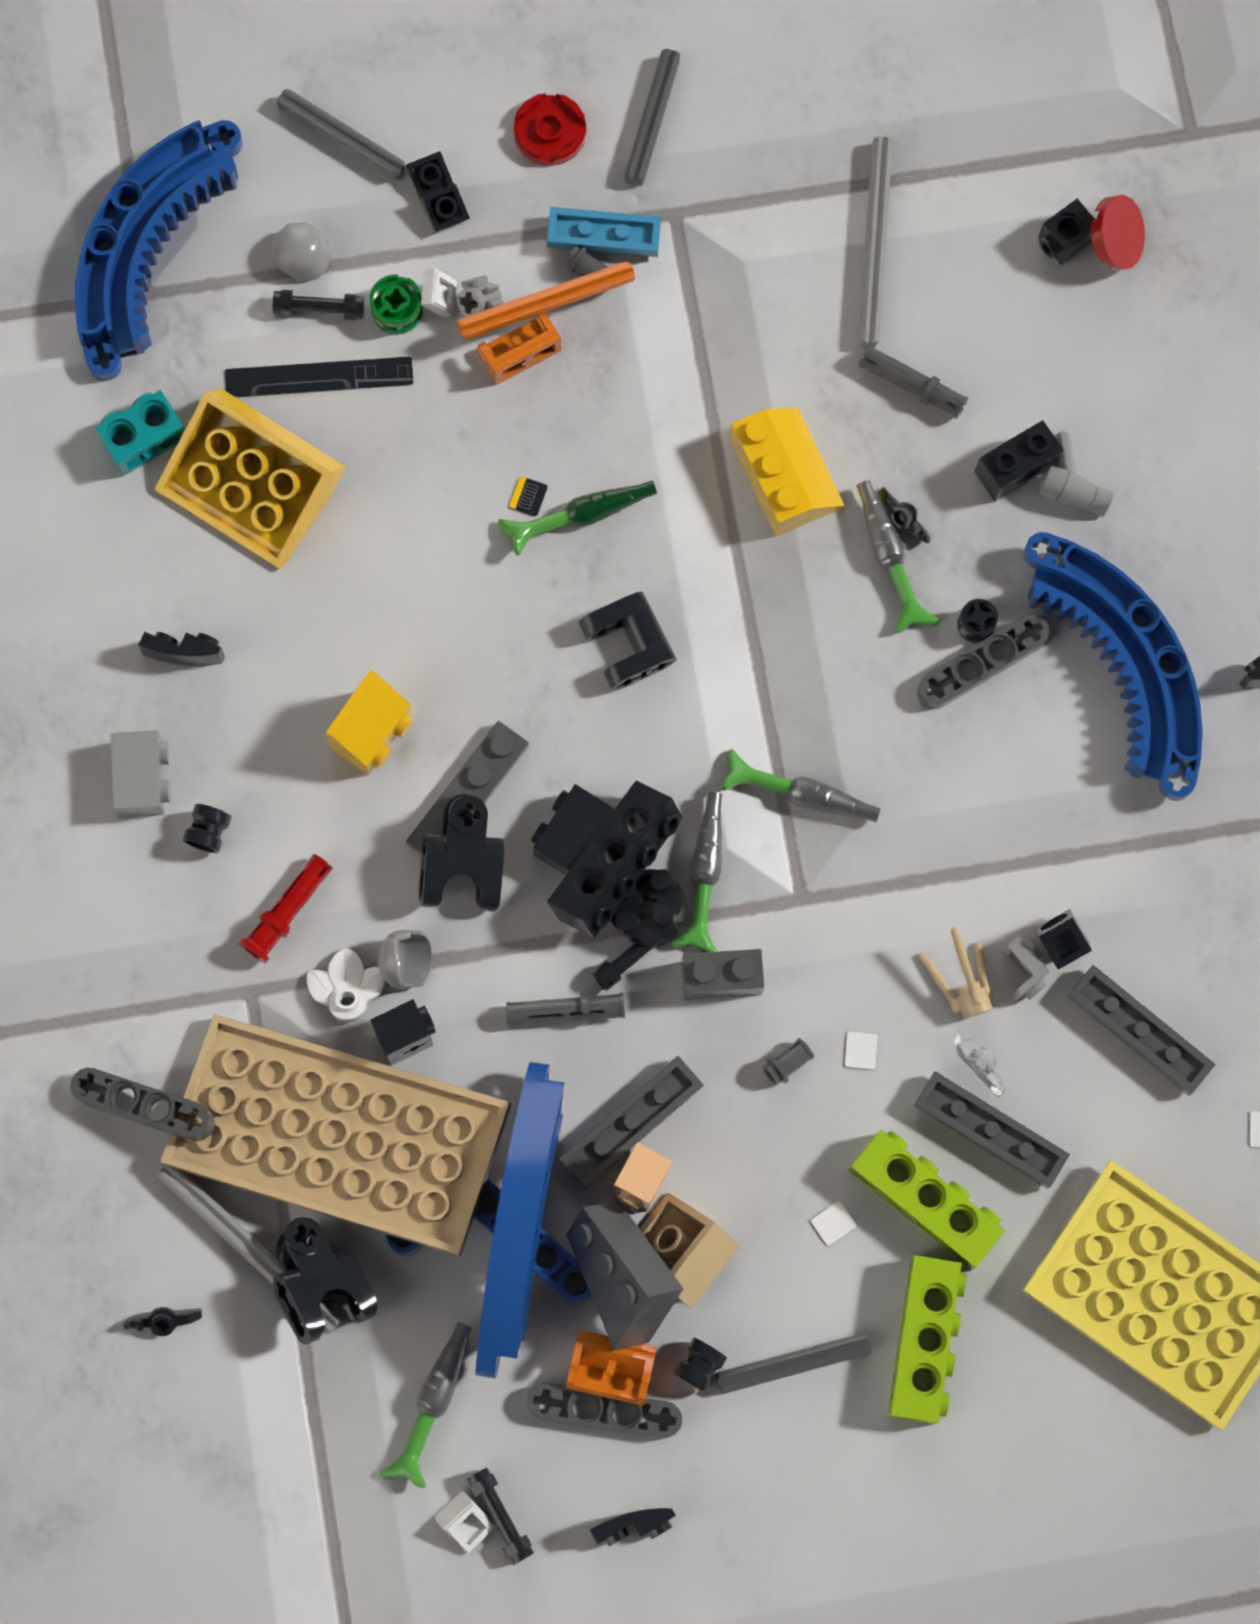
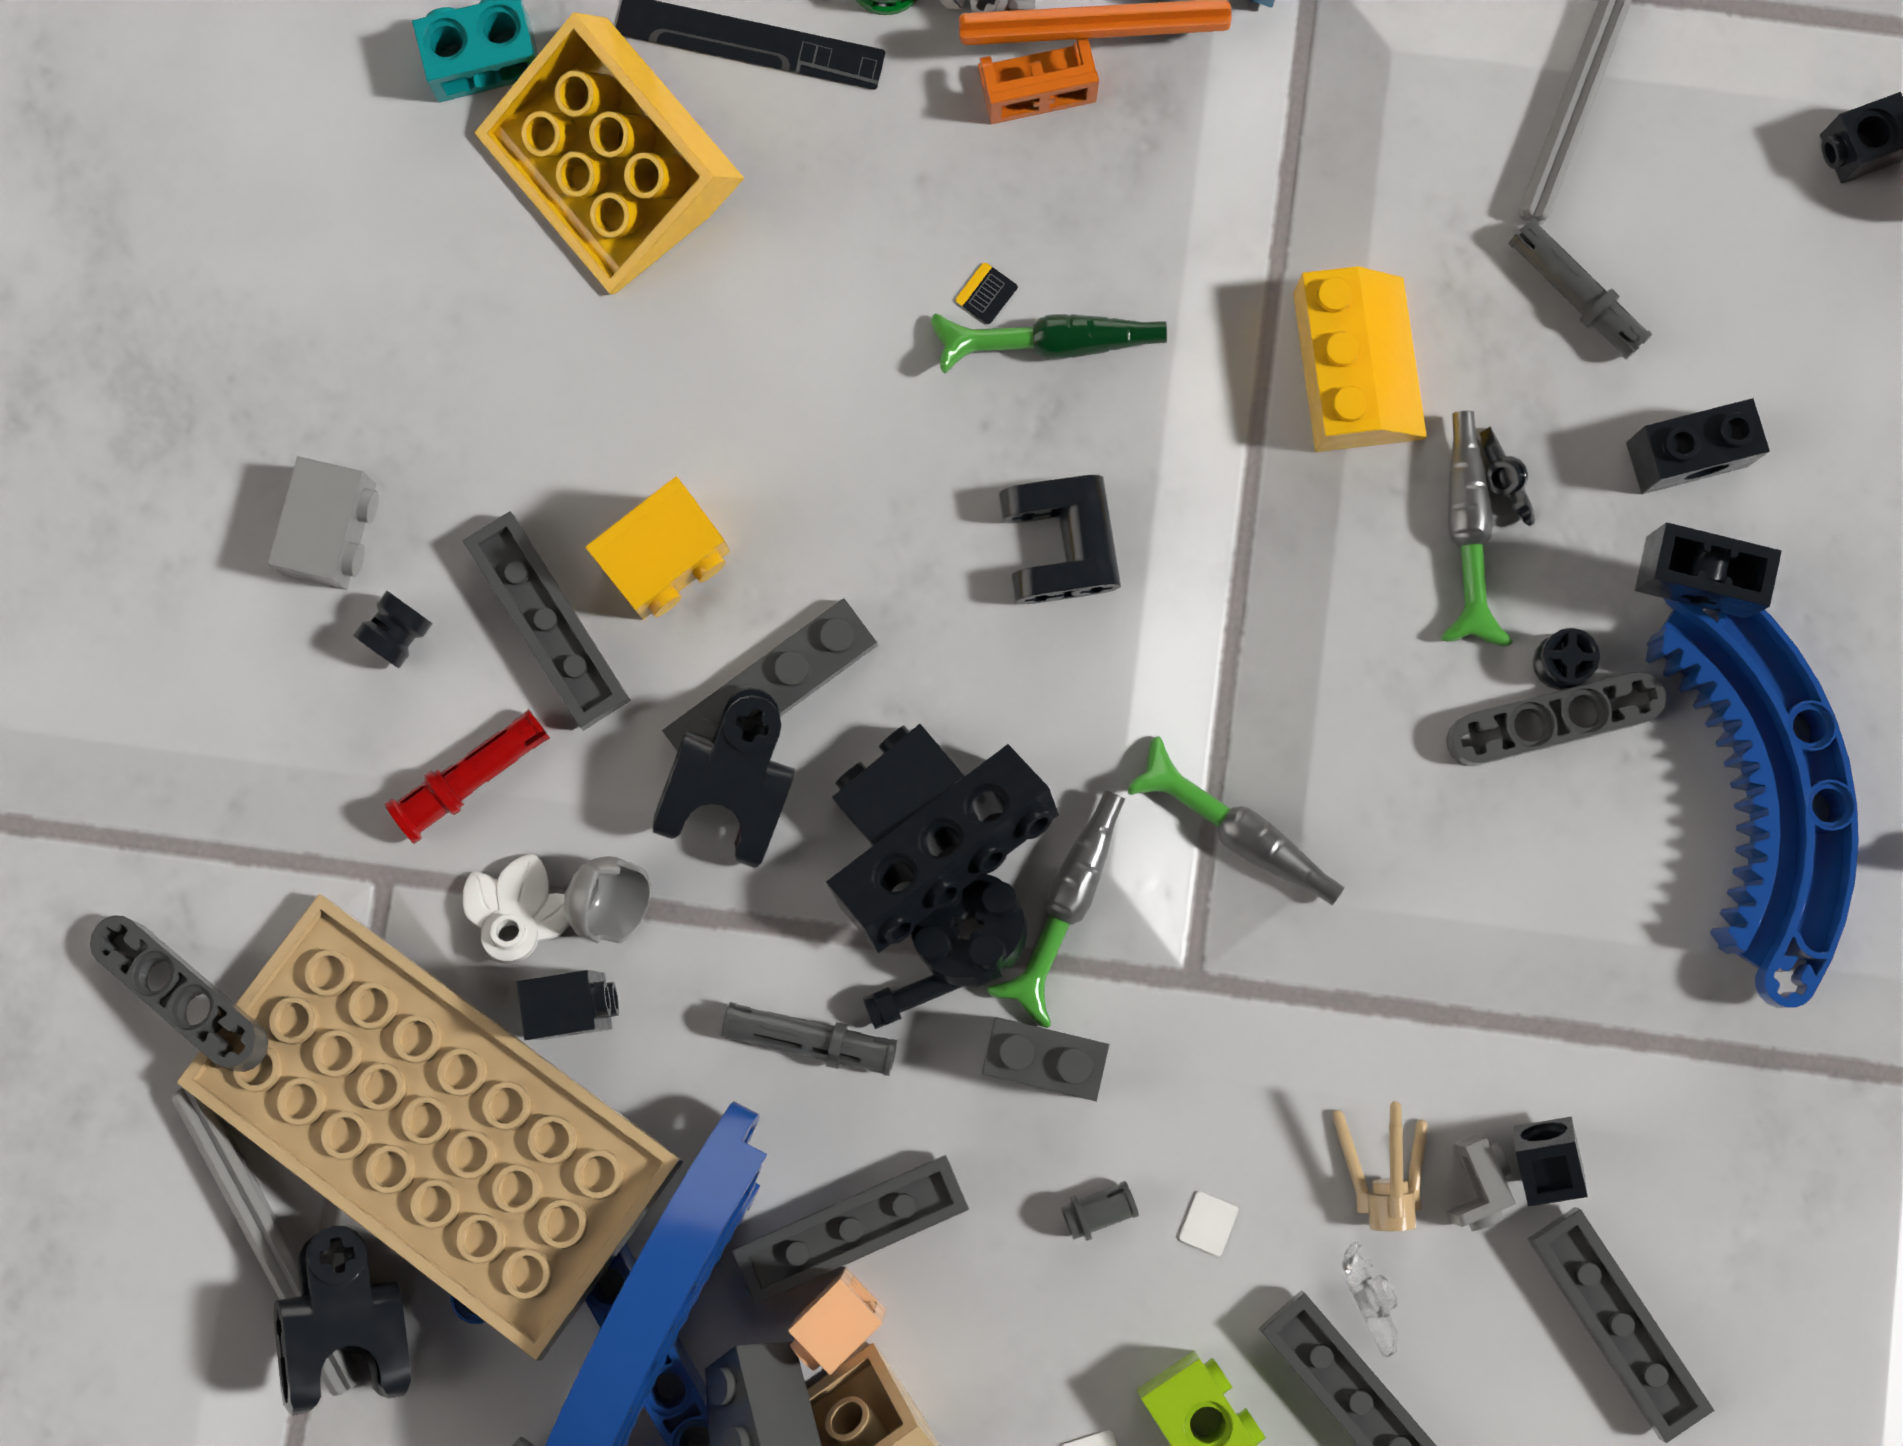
camera: 25 degrees right, 5 degrees up
(163, 1320) = (117, 1304): black piece -> none
(192, 651) = (446, 372): black slope -> none
(307, 793) = (546, 620): none -> dark grey plate
(1045, 536) = (1708, 570): none -> black brick
(1070, 489) = (1758, 509): light grey piece -> none

